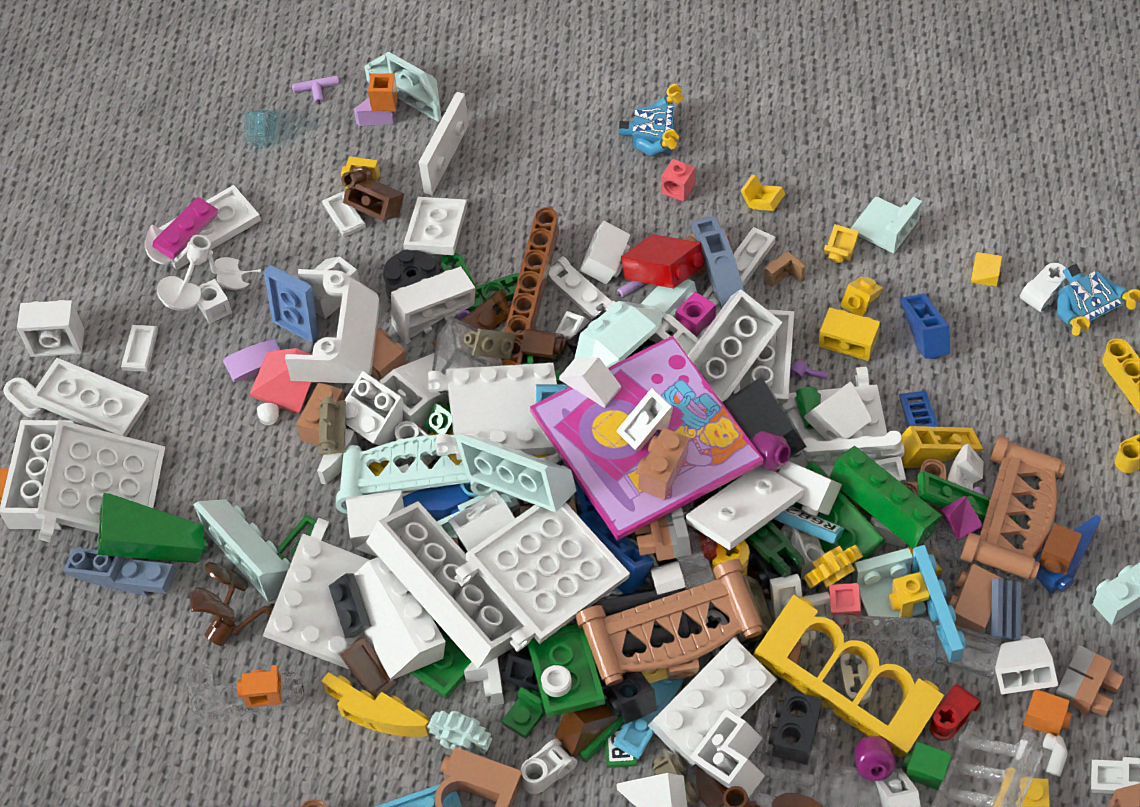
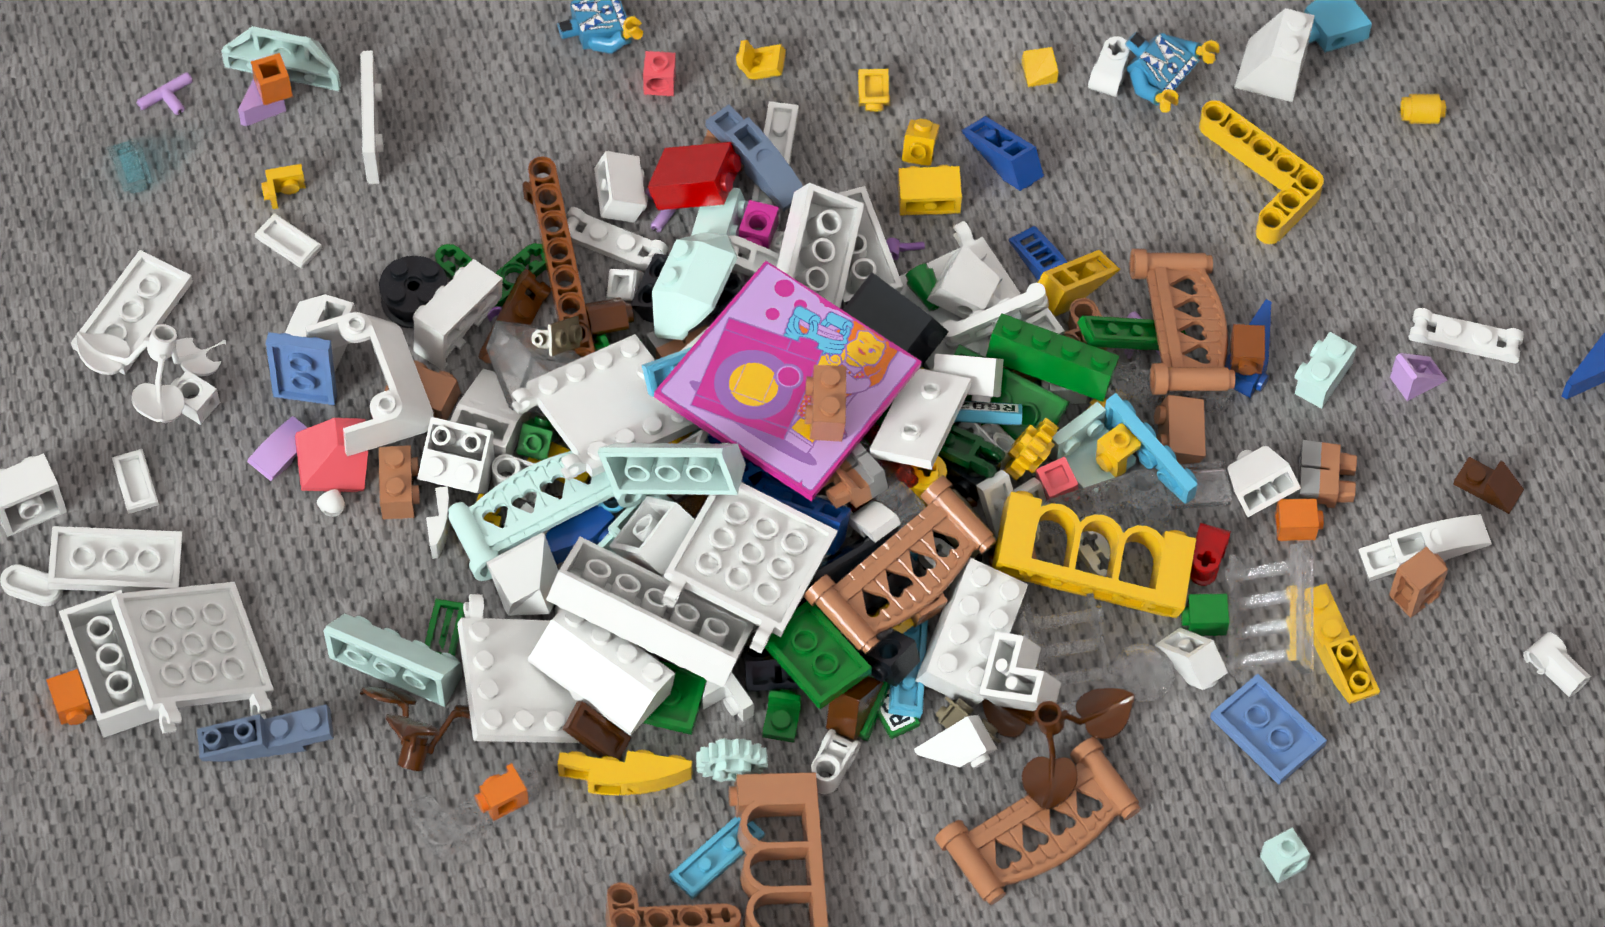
camera: 30 degrees left, 5 degrees up
(147, 533) = (277, 682): green slope -> none
(184, 227) = (118, 322): dark pink plate -> none
(332, 426) = (424, 491): dark tan hinge -> none
(349, 605) = (550, 674): black plate -> none
(371, 195) = (314, 208): reddish brown hinge -> none
(435, 225) = (408, 219): white plate -> none
(556, 681) = (815, 668): white tile -> none
(591, 379) = (706, 338): white slope -> none
(645, 419) = (789, 362): white slope -> none
(772, 448) = (923, 346): magenta head -> none
(782, 267) = (825, 133): medium nougat bracket -> none
(801, 728) = (1071, 624): black brick -> none
(874, 758) = (1154, 626): magenta head -> none
(887, 223) = (910, 48): light aqua bracket -> none
(961, 518) = (1137, 351): magenta slope -> none
(966, 468) = (1114, 296): white slope -> none
(1006, 615) = (1218, 430): sand blue tile -> none
(1058, 755) = (1324, 555): white arm -> none

